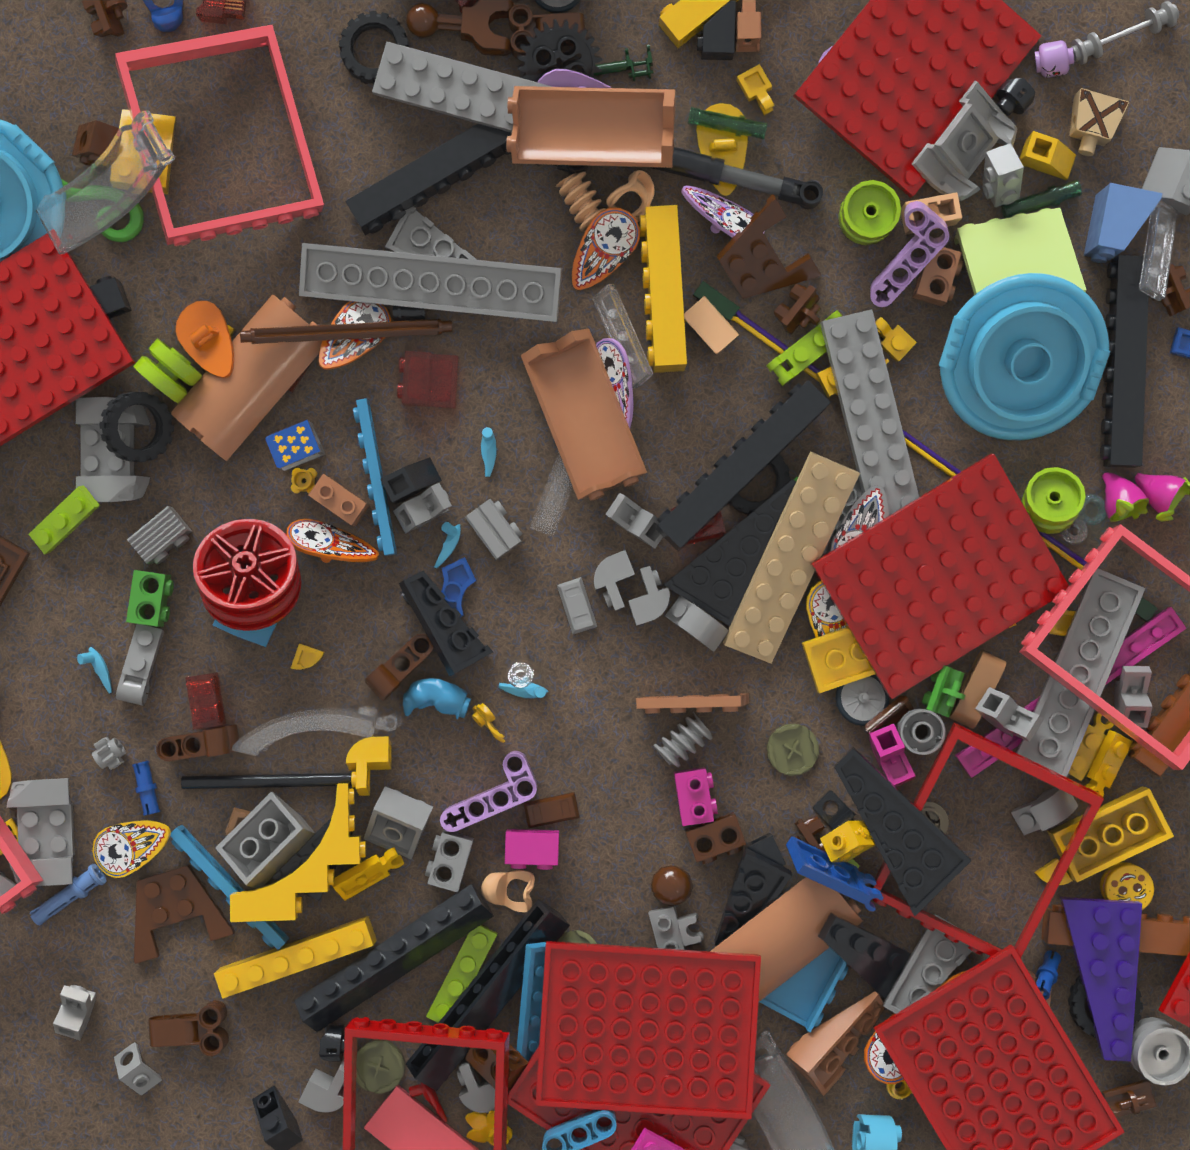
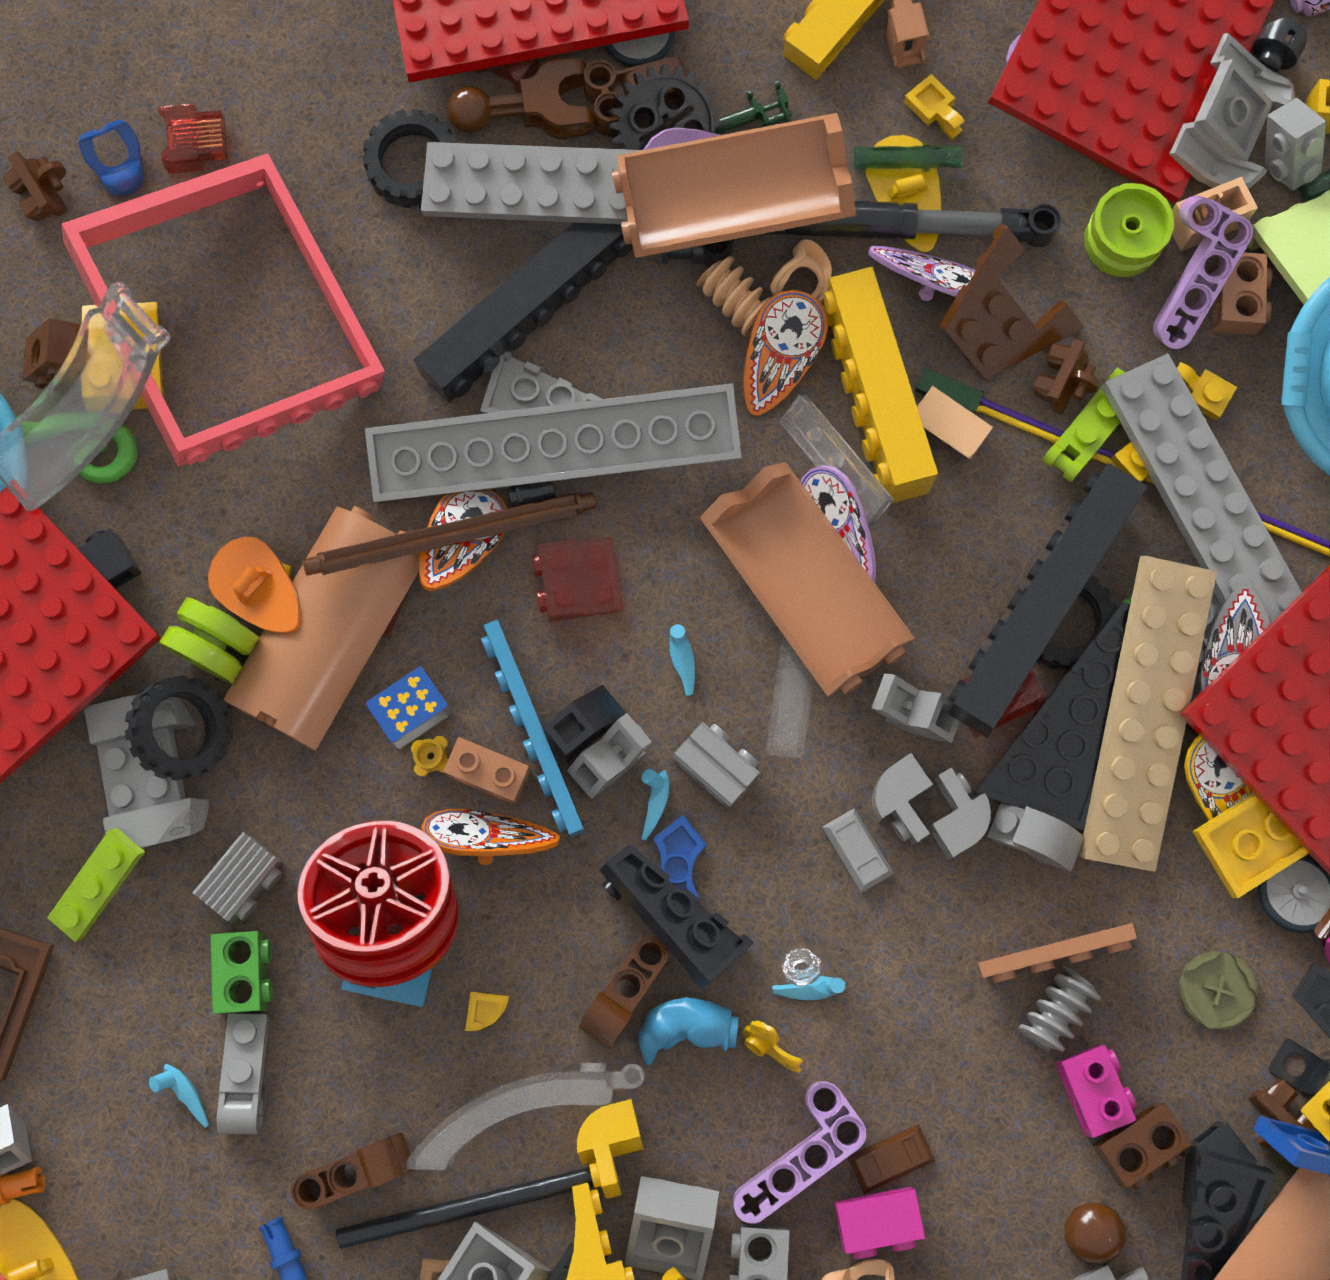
camera: 10 degrees left, 10 degrees down
(108, 753) = (220, 1217): light grey gear -> none
(205, 700) = (350, 1105): clear red brick -> none
(719, 35) = (868, 50): black slope -> none

